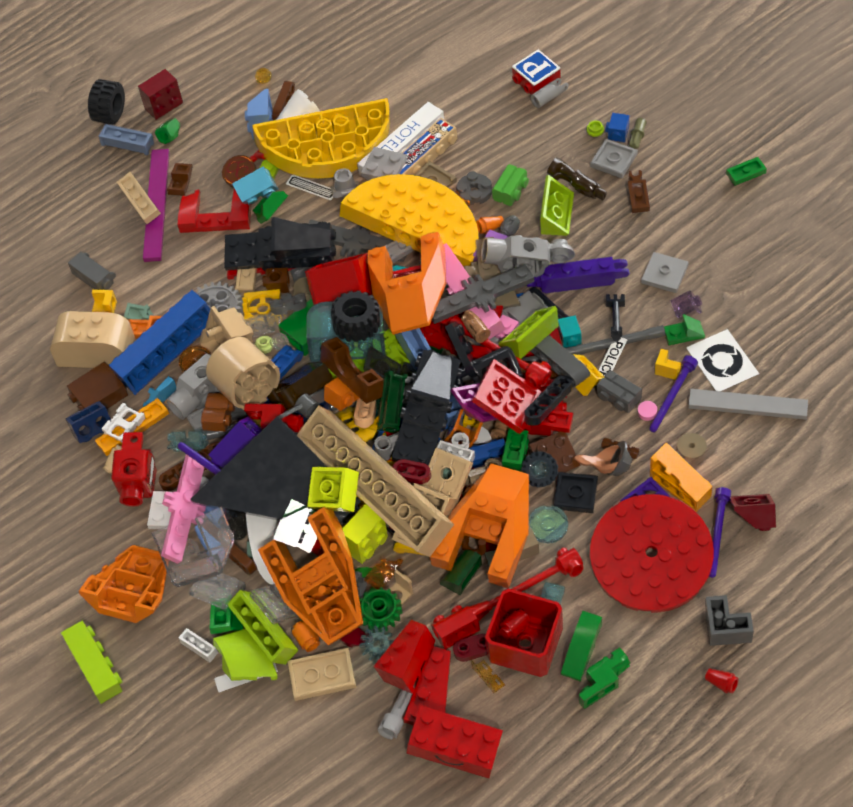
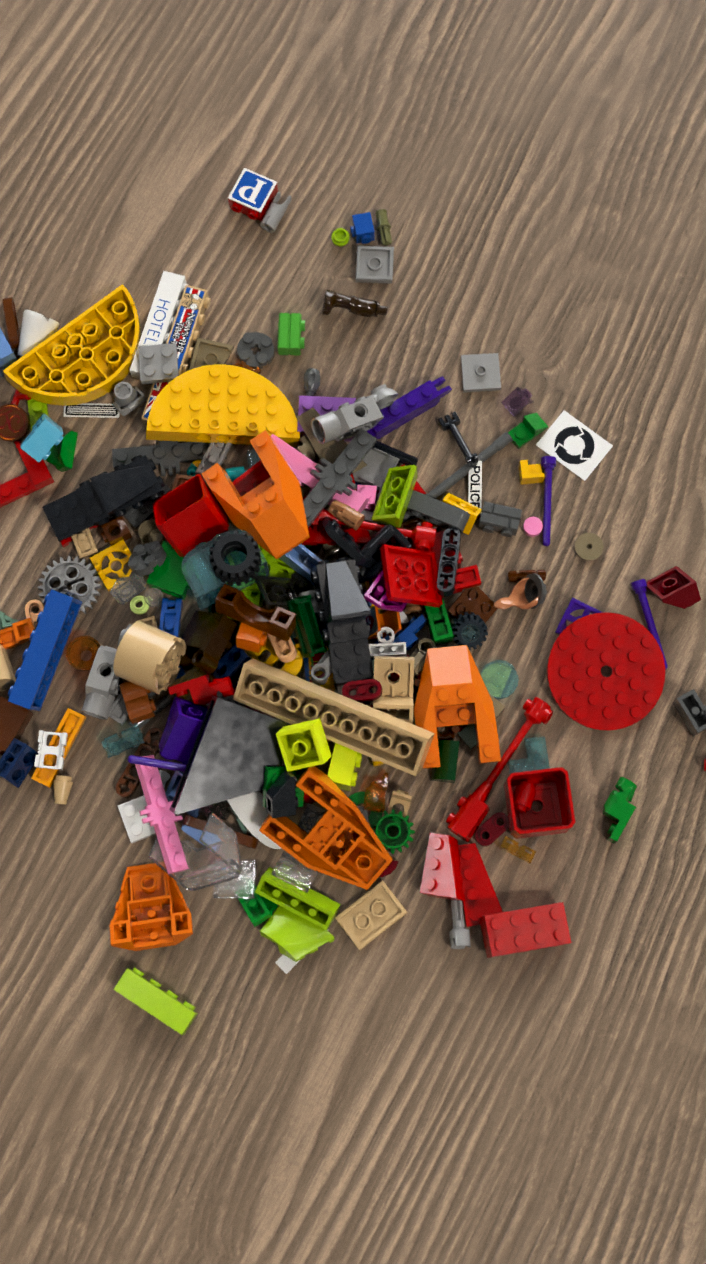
camera: 30 degrees left, 20 degrees up
(141, 477) = (86, 792): red piece -> none
(163, 391) = (70, 697): dark azure slope -> none
(198, 645) = (245, 940): white piece -> none
(222, 327) = (103, 617): tan piece -> none
(305, 636) = (339, 888): orange brick -> none
(306, 404) = (227, 665): dark grey piece -> none
(376, 636) = (408, 859): clear light blue gear -> none
(485, 224) = (291, 385): orange cone -> none
(556, 208) = (347, 343): lime slope -> none
(569, 331) = (427, 474): teal brick -> none
(576, 492) = (508, 637): black tile -> none
(581, 645) = (587, 787): green slope -> none
(638, 193) = (416, 295): reddish brown plate -> none
(679, 478) = (597, 587): light orange wedge -> none
(746, 171) = (506, 231): green plate -> none
(748, 404) = (618, 482): light grey tile -> none

